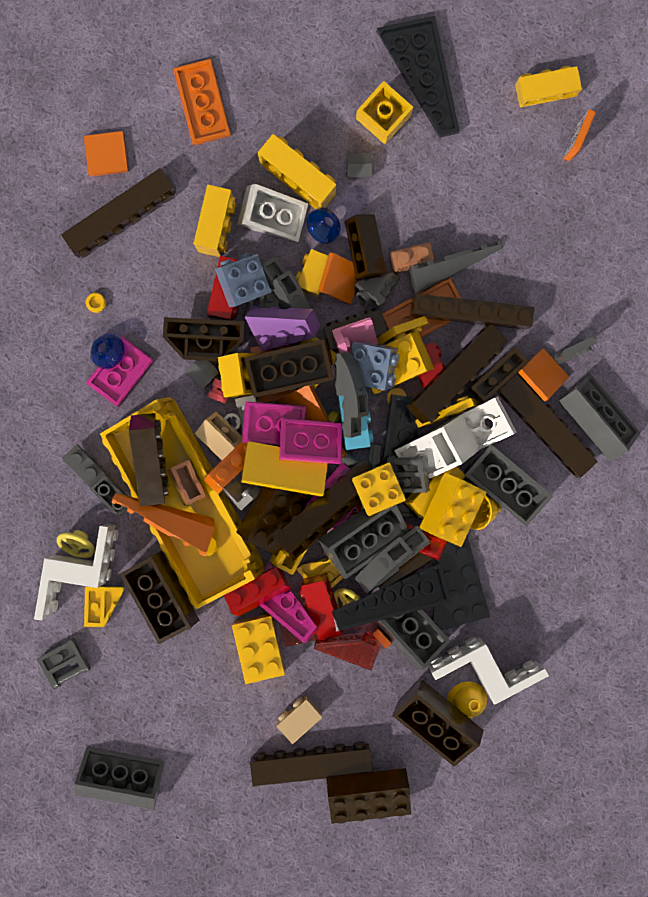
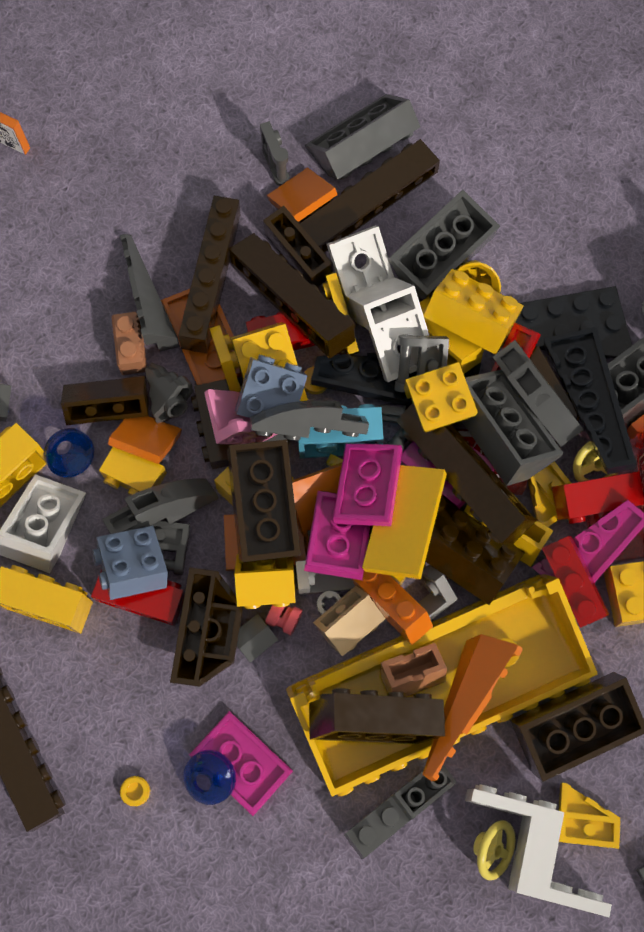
camera: 85 degrees left, 15 degrees down
(281, 326) = (203, 515): medium lavender wedge -> none

